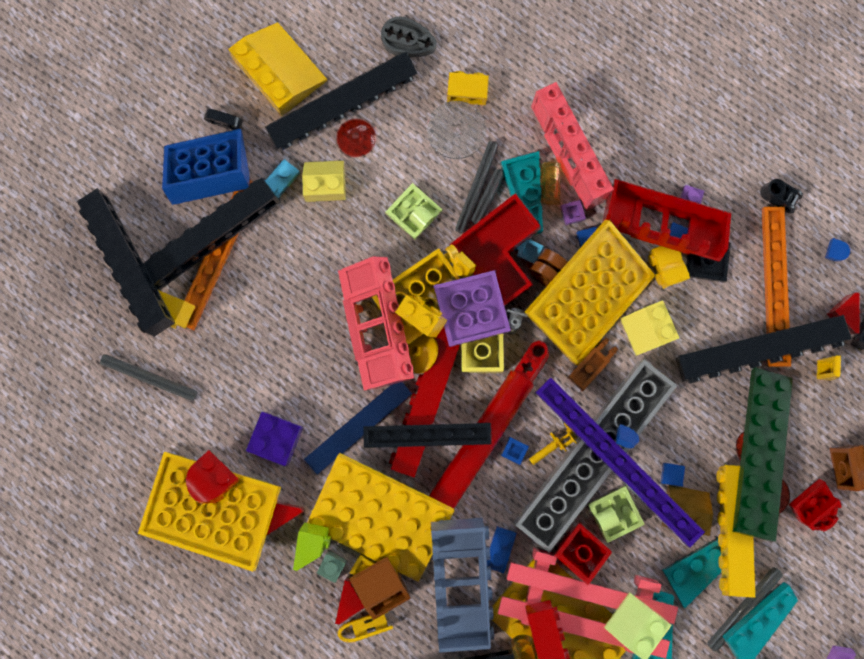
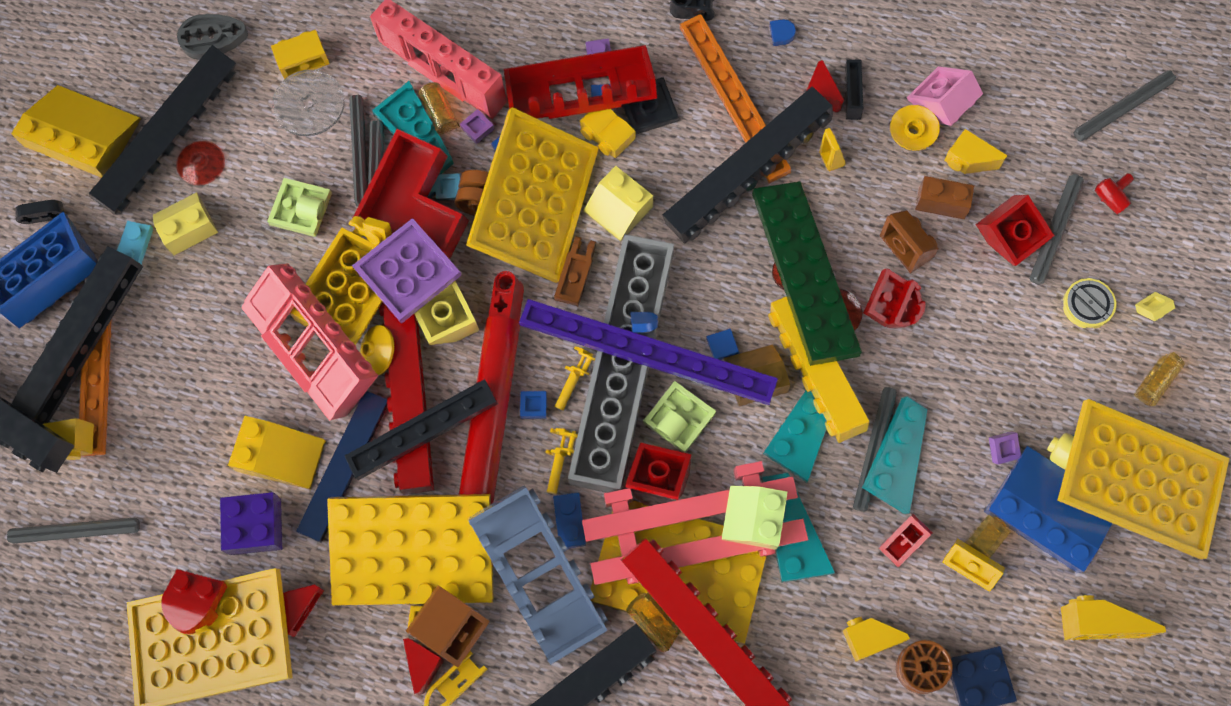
camera: 15 degrees left, 10 degrees down
(310, 544) = (344, 618): lime slope -> none
(315, 394) = (276, 453): none -> yellow slope
(331, 566) = (382, 633): sand green brick -> none
(421, 316) = (350, 301): yellow brick -> none
(515, 318) = (465, 261): light grey hinge -> none
(515, 500) = (559, 455): none -> yellow piece

